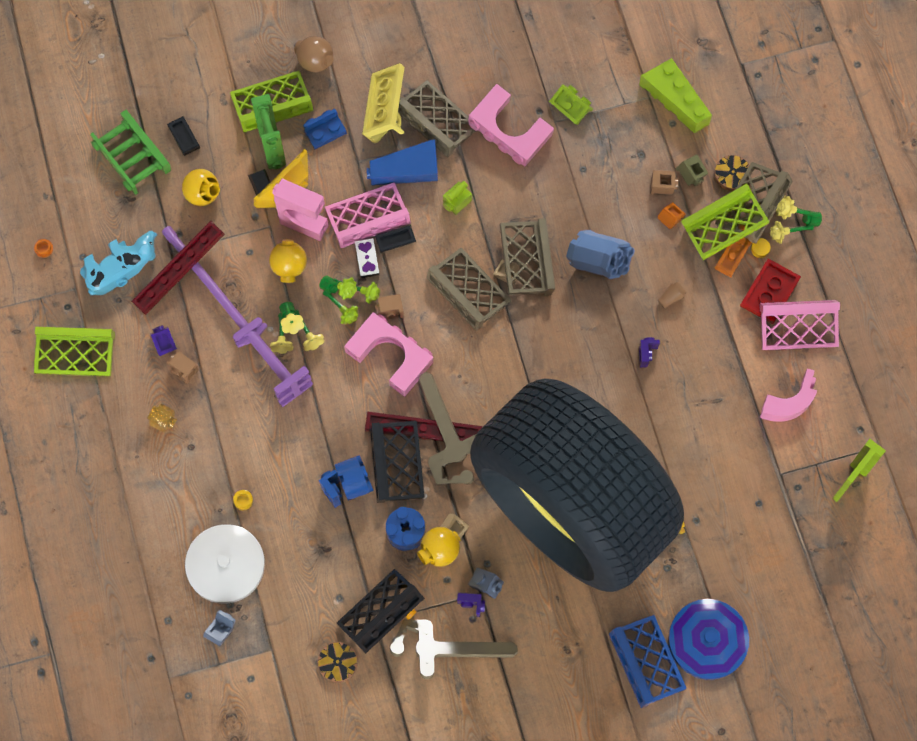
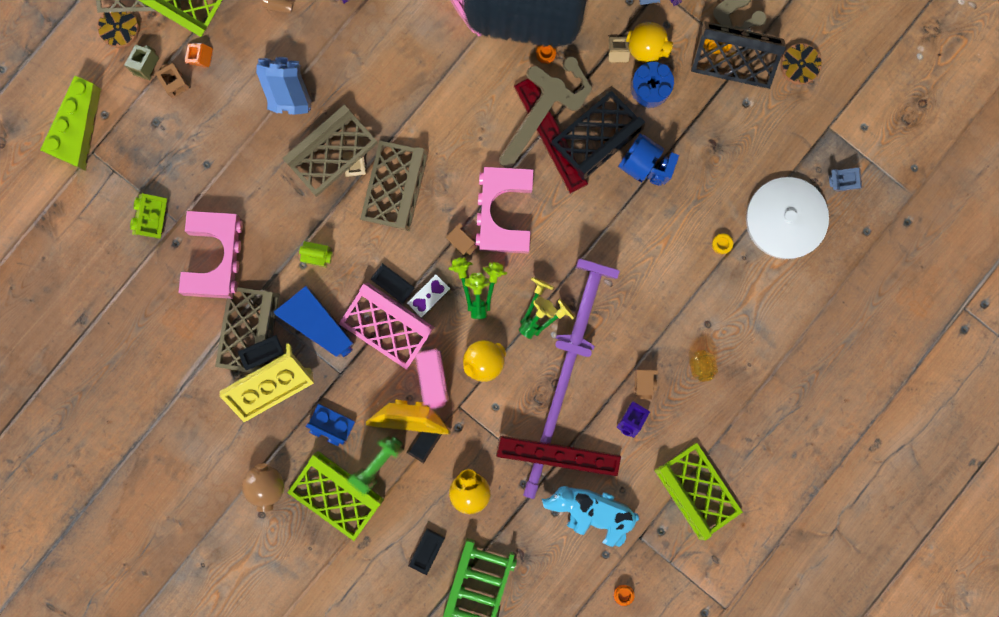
camera: 125 degrees left, 15 degrees up
(410, 110) = (261, 352): none -> black tile

